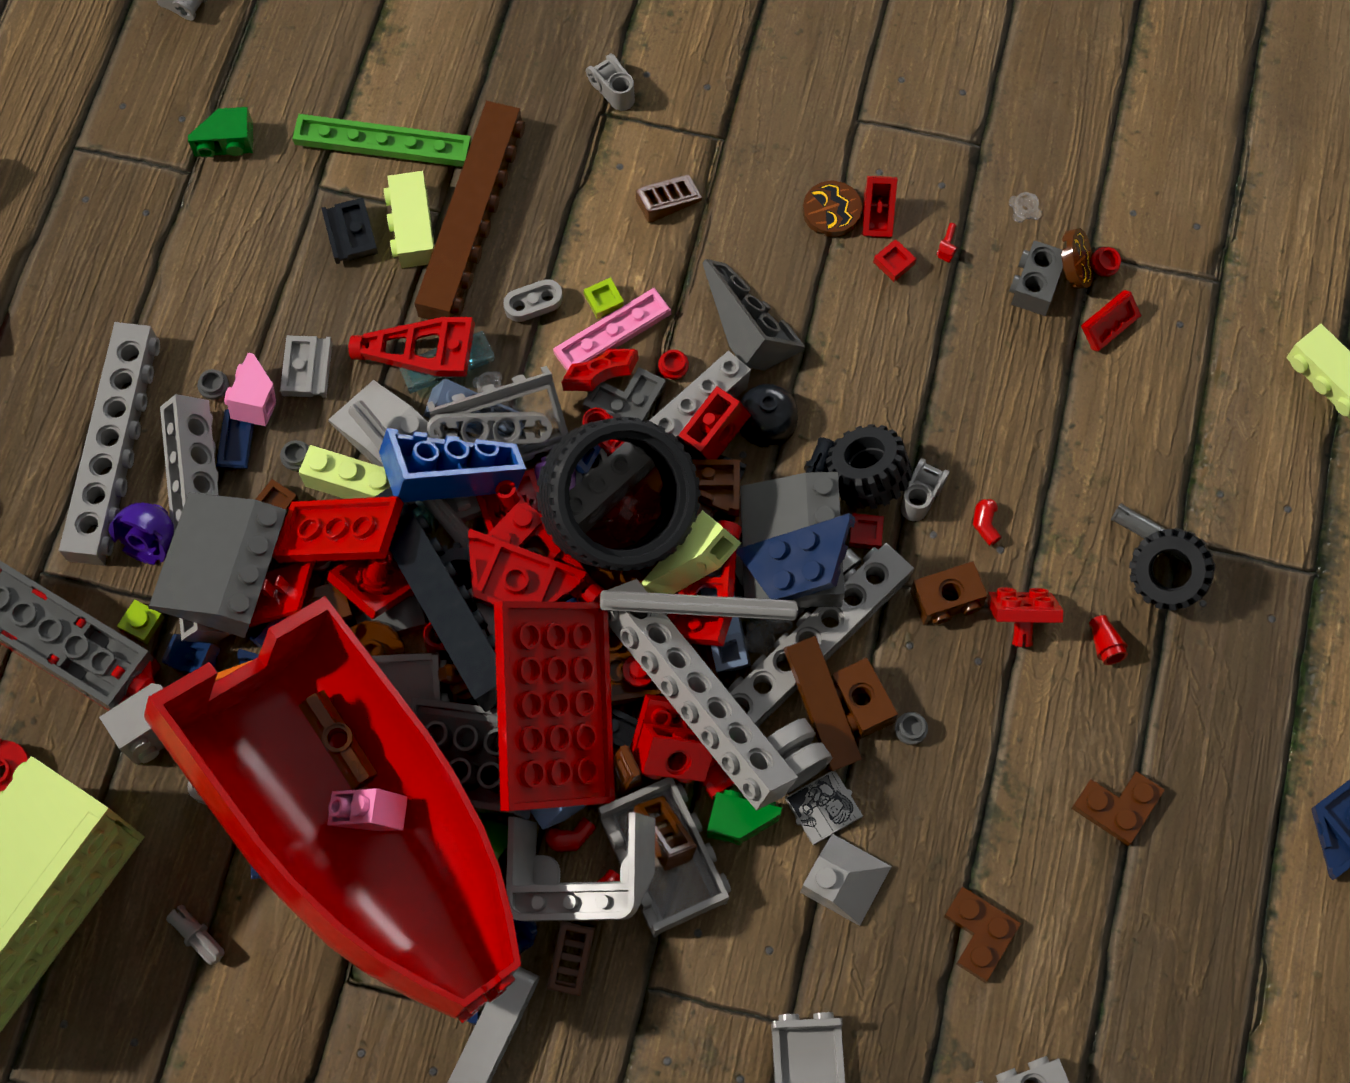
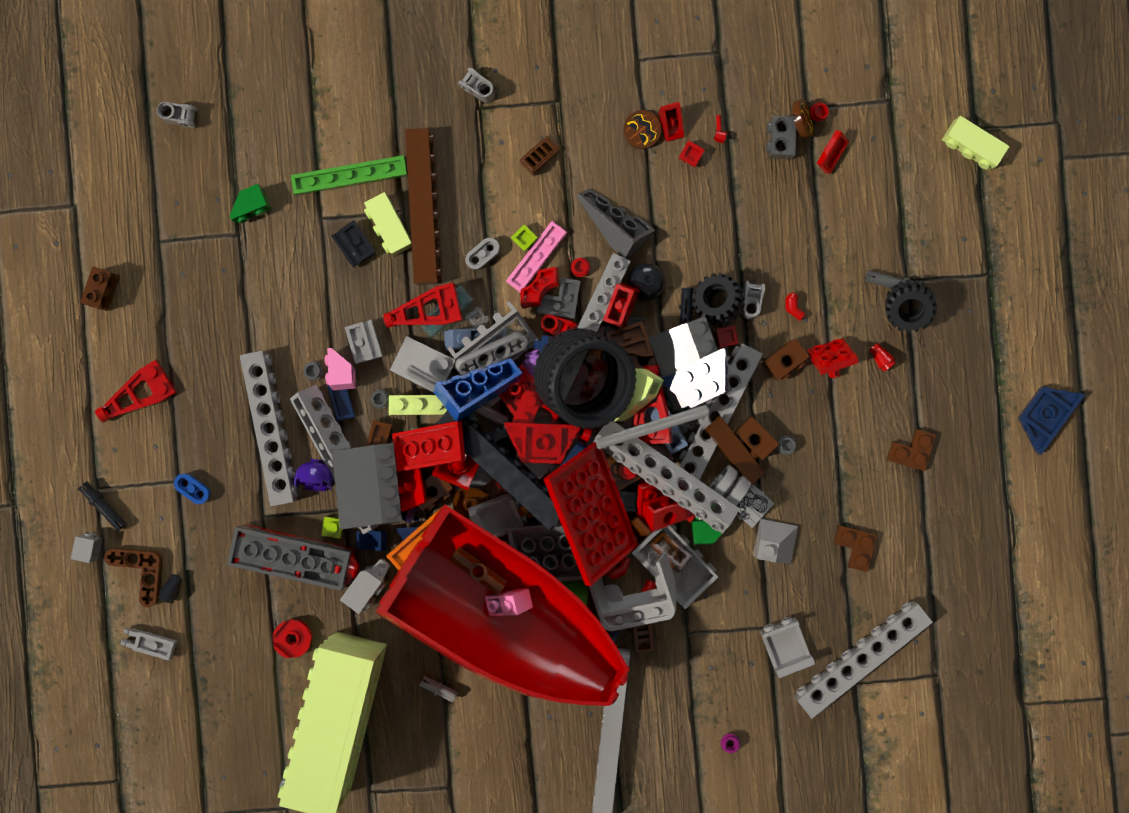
camera: 20 degrees left, 20 degrees up
(1028, 200) = (766, 91): clear plate -> none

